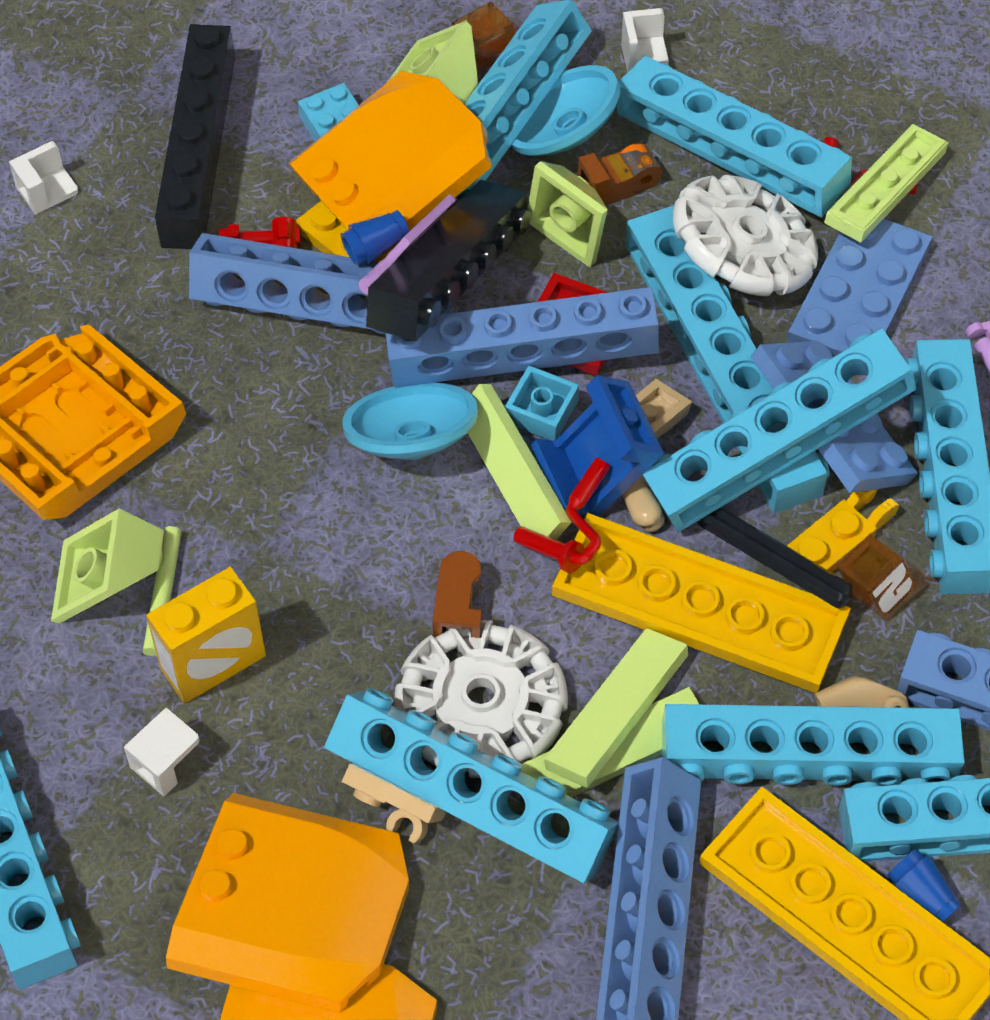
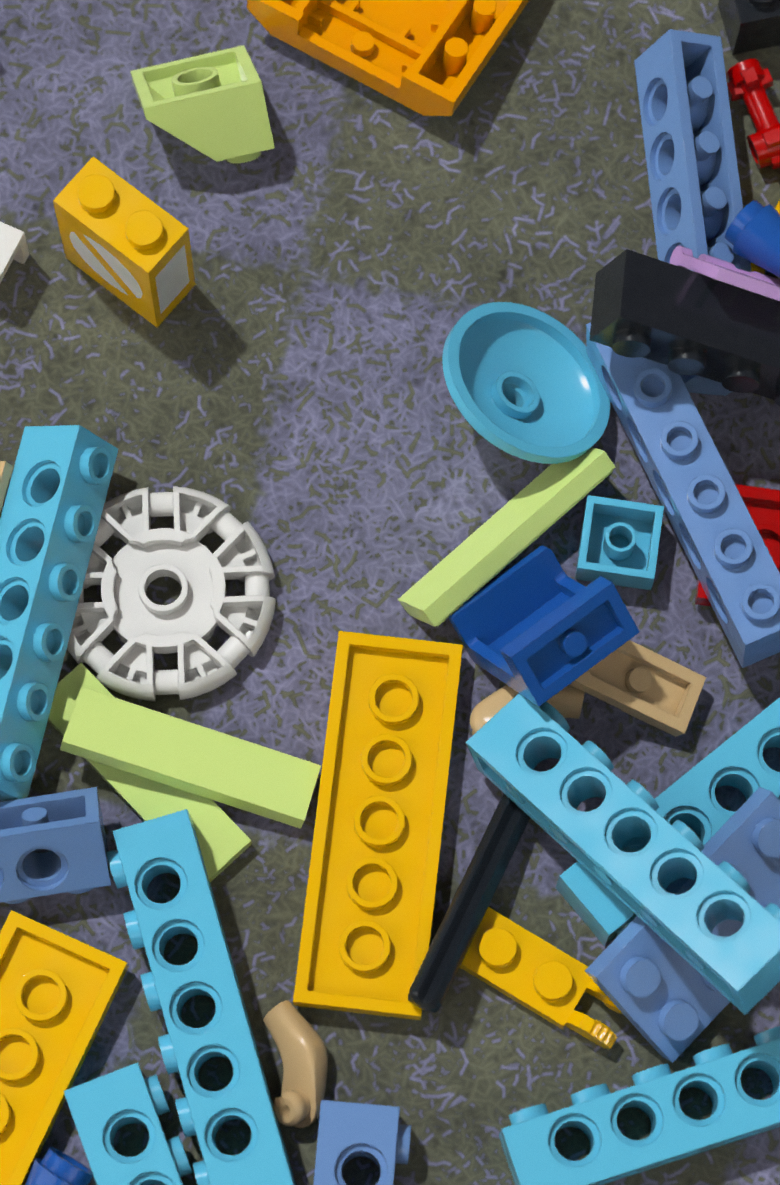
camera: 70 degrees right, 15 degrees up
(163, 579) = (217, 177): yellowish green bar -> none
(456, 590) = (292, 519): dark orange leg -> none
(572, 554) = (382, 642): red piece -> none
(877, 576) = (471, 1037): clear orange brick -> none

